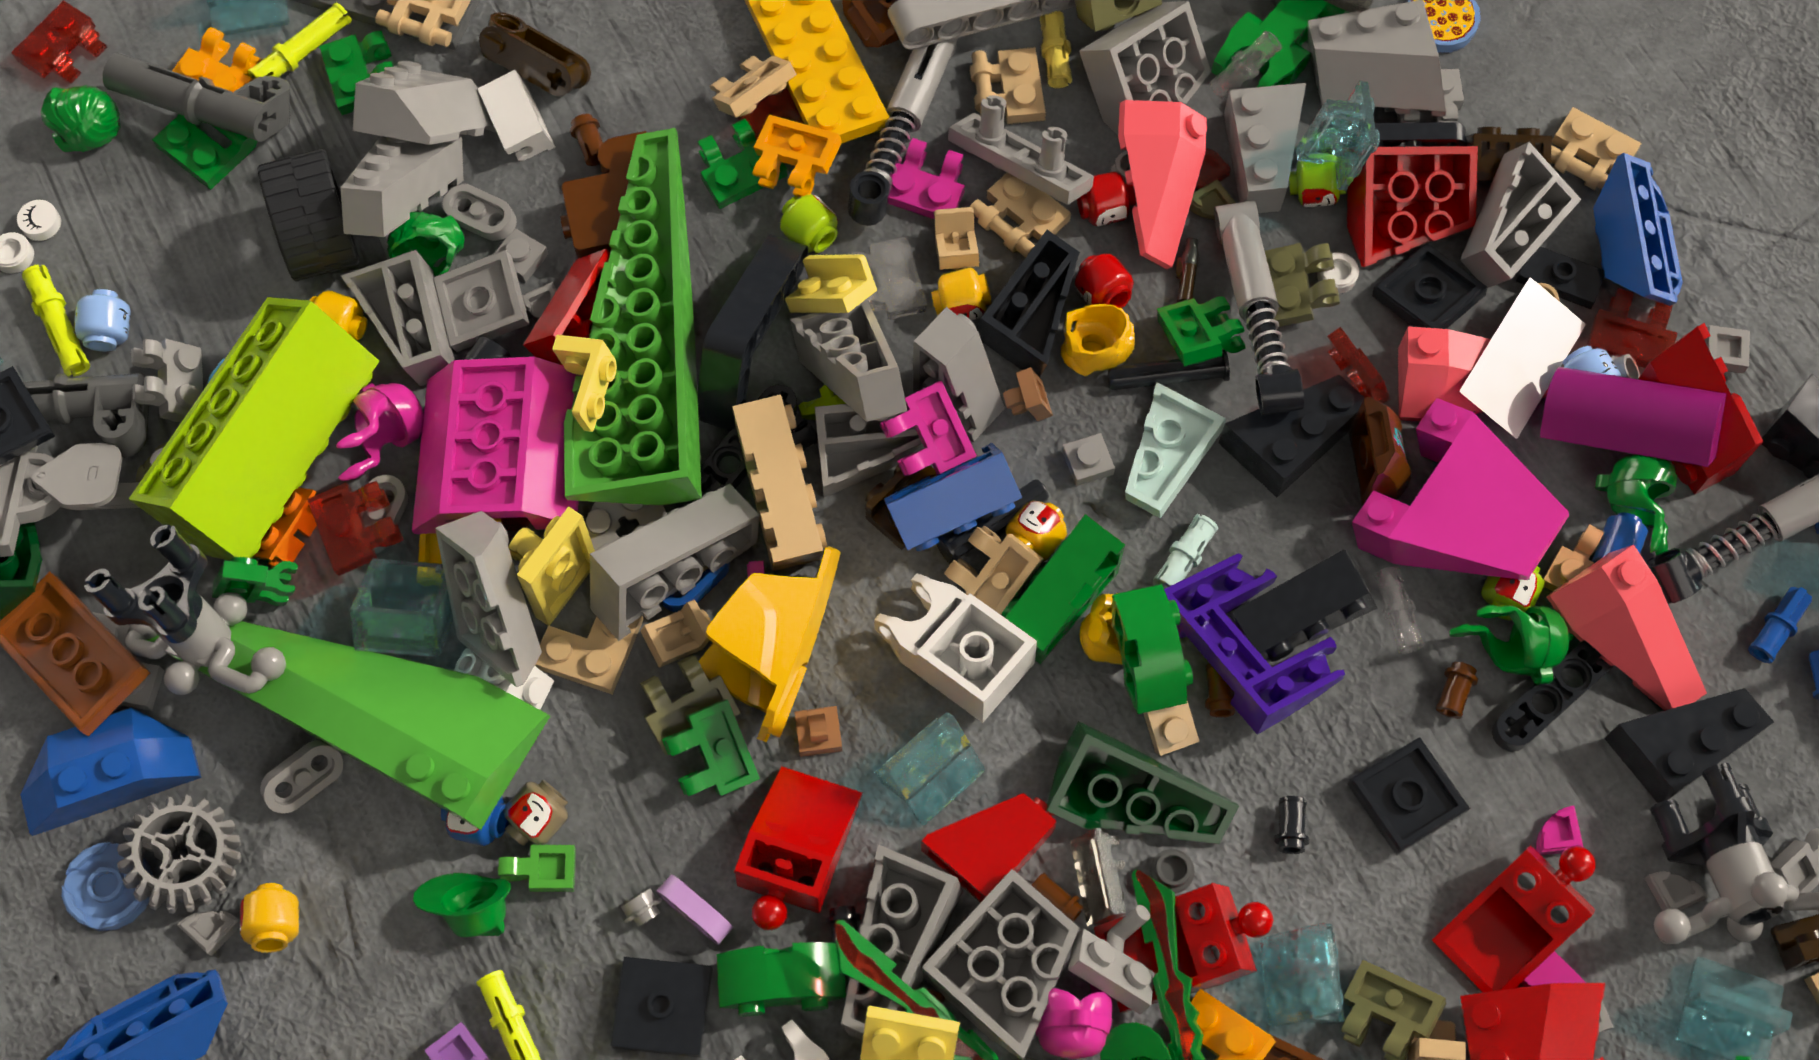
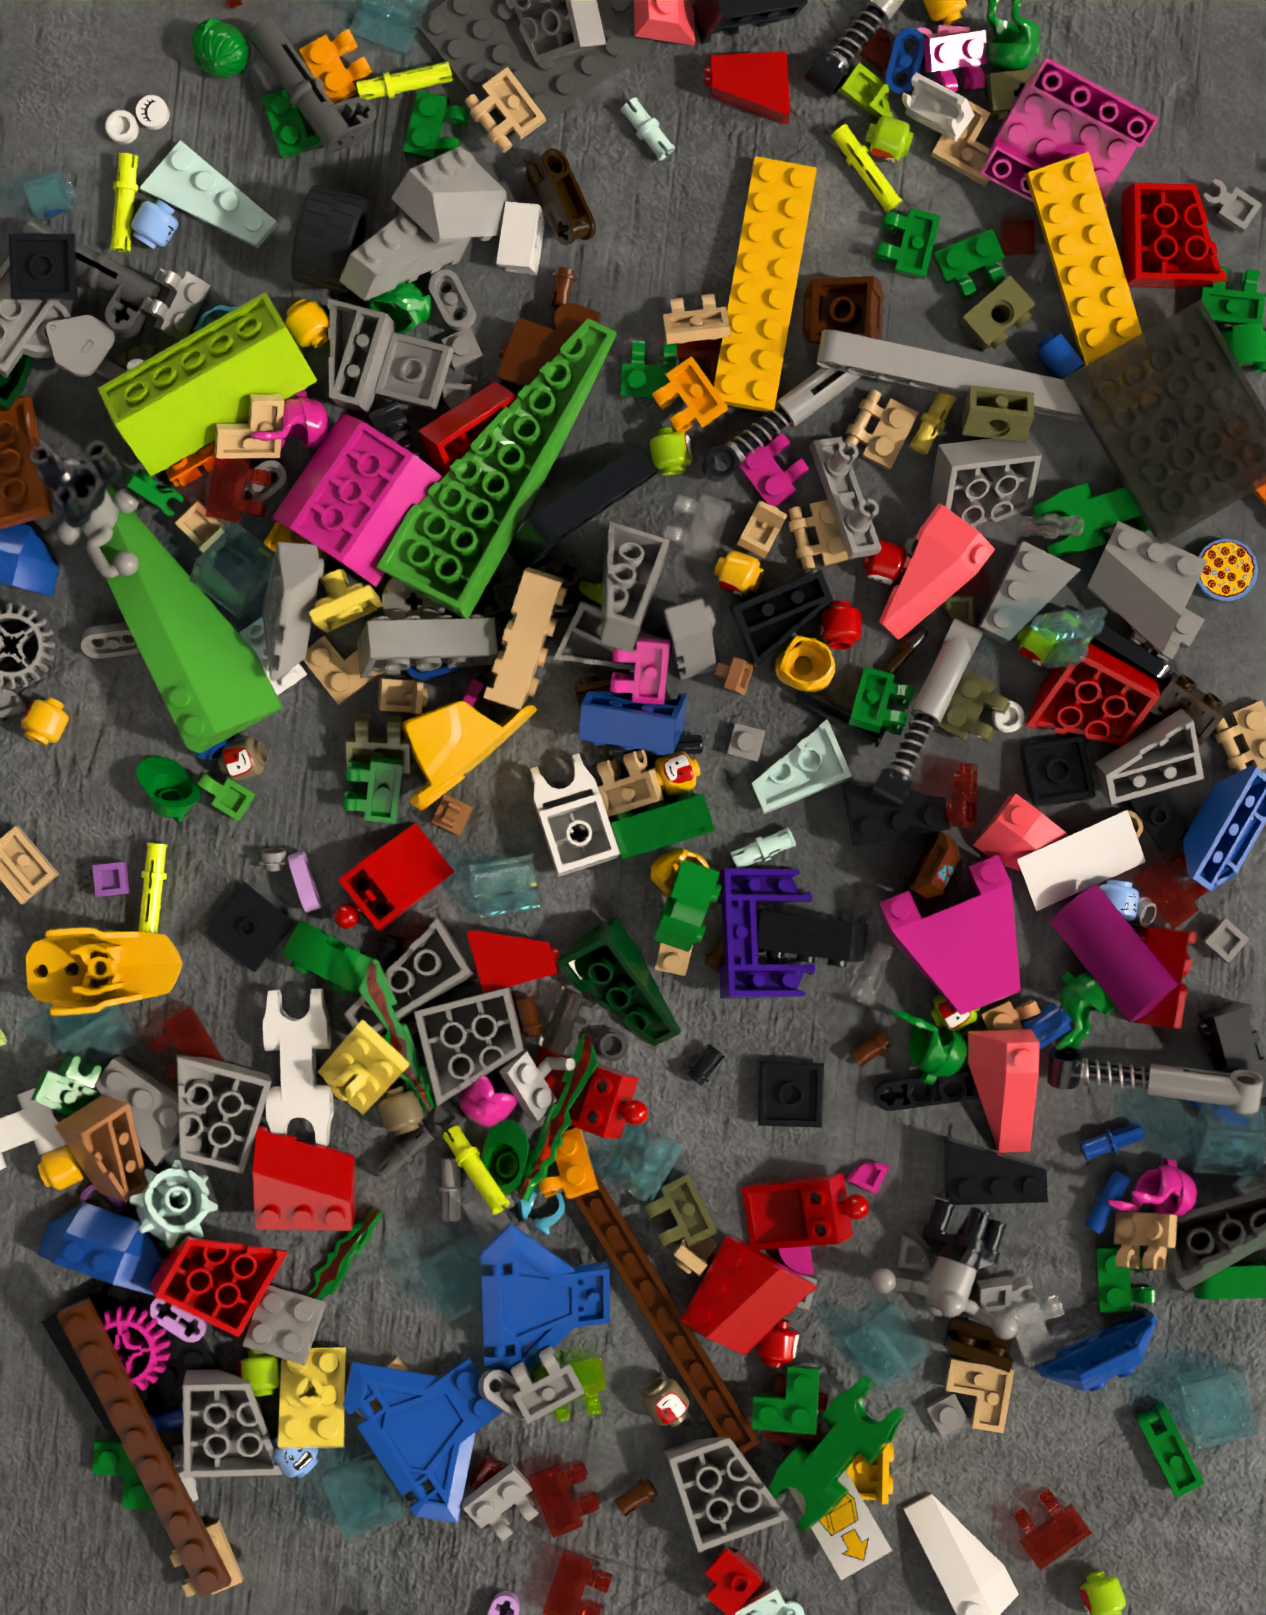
camera: 30 degrees right, 20 degrees up
(149, 264) = (200, 190): none -> light aqua wing
(328, 465) = (236, 439): none -> tan plate
(330, 592) = (198, 527): none -> tan bracket
(598, 367) = (450, 494): light yellow bracket -> none
(833, 284) = (652, 516): light yellow bracket -> none

